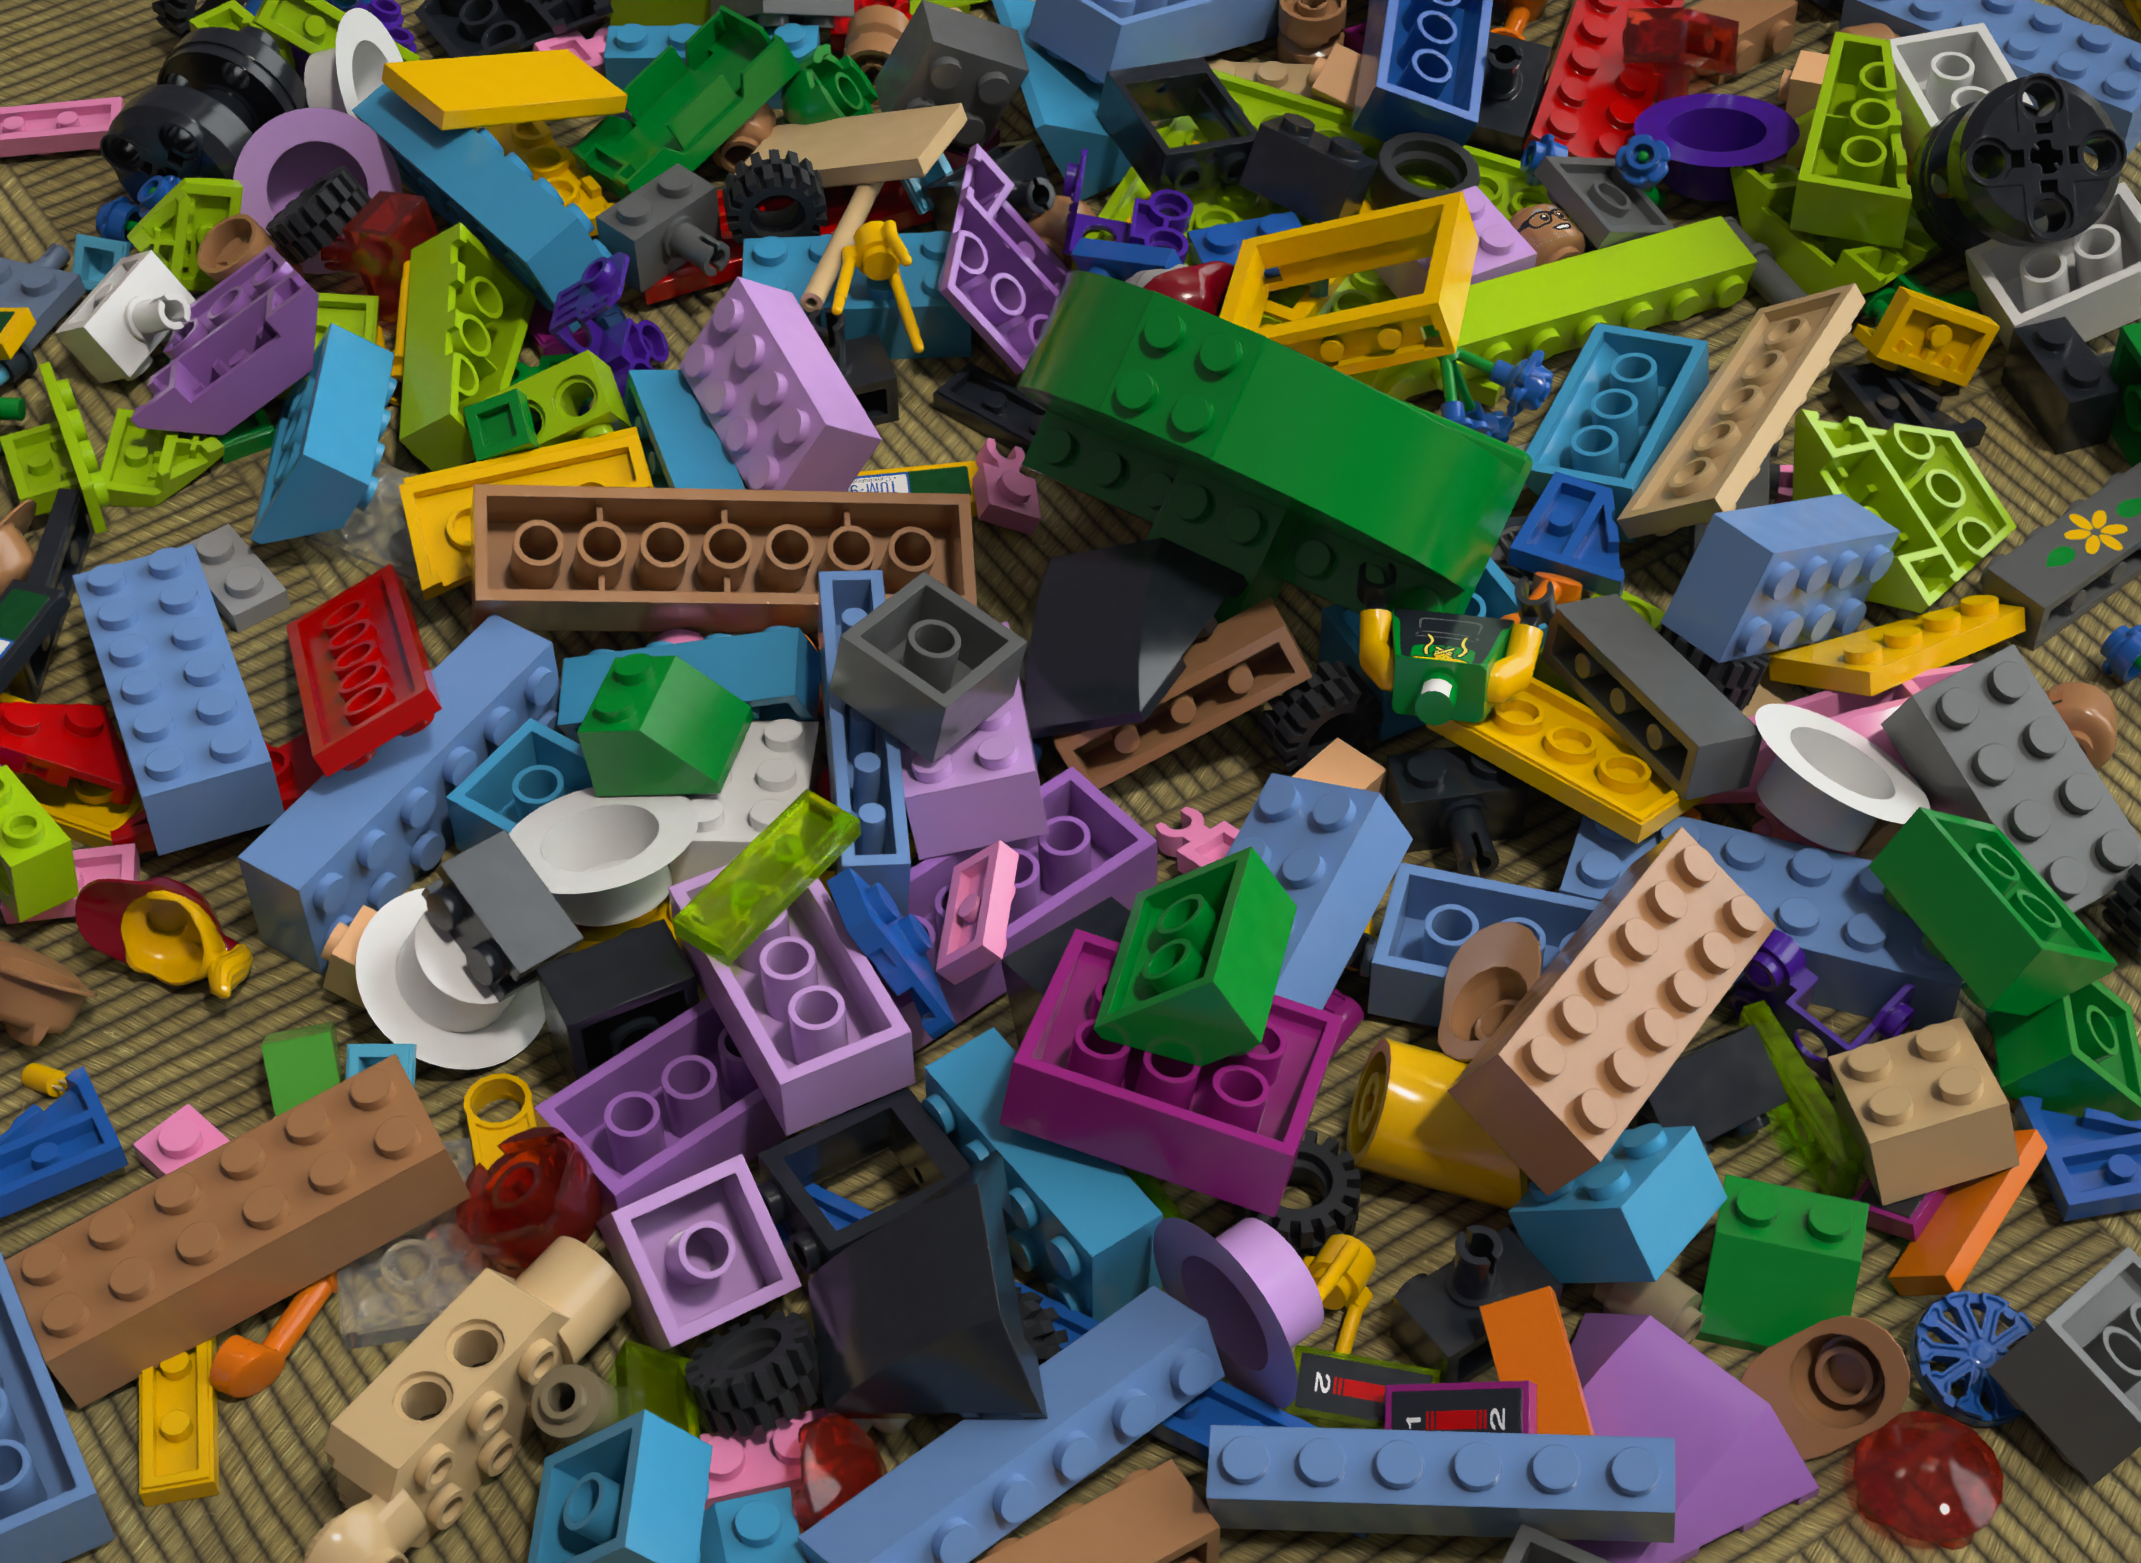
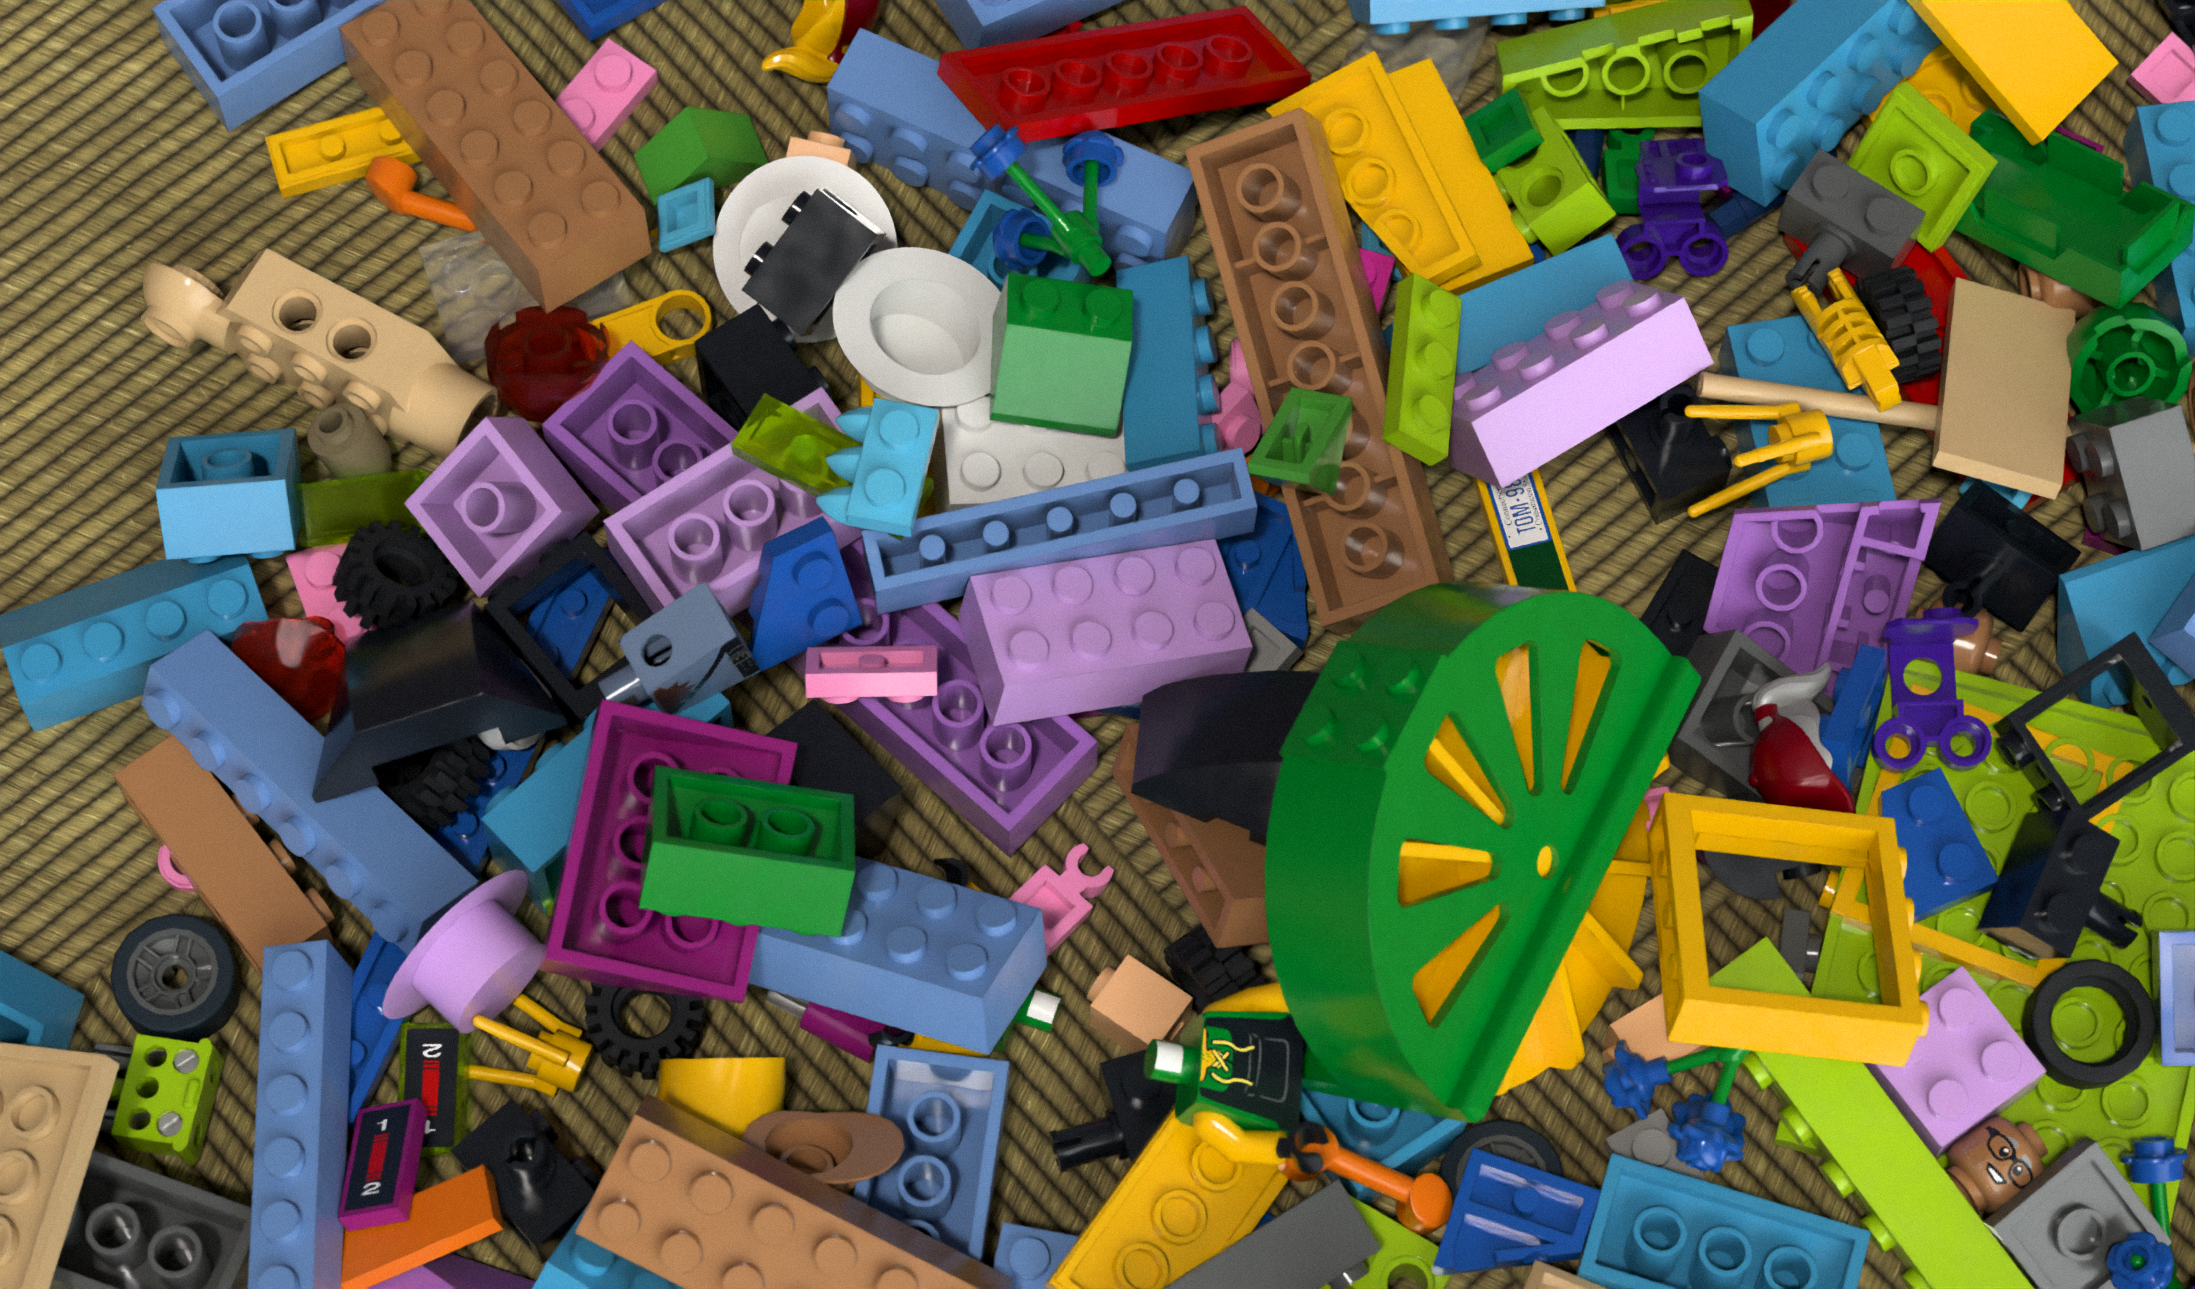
camera: 80 degrees right, 20 degrees up
(462, 690) = (1021, 235): none -> plant
(620, 155) = (1924, 161): none -> lime tile
(751, 469) = (1422, 369): none -> lime plate
(786, 815) = (884, 471): none -> medium azure plate
(788, 214) = (1852, 340): none -> yellow hinge
(802, 545) = (1304, 442): none -> bright green slope
(927, 666) = (1087, 559): dark grey brick -> none
(953, 1023) = (681, 655): none -> sand blue torso

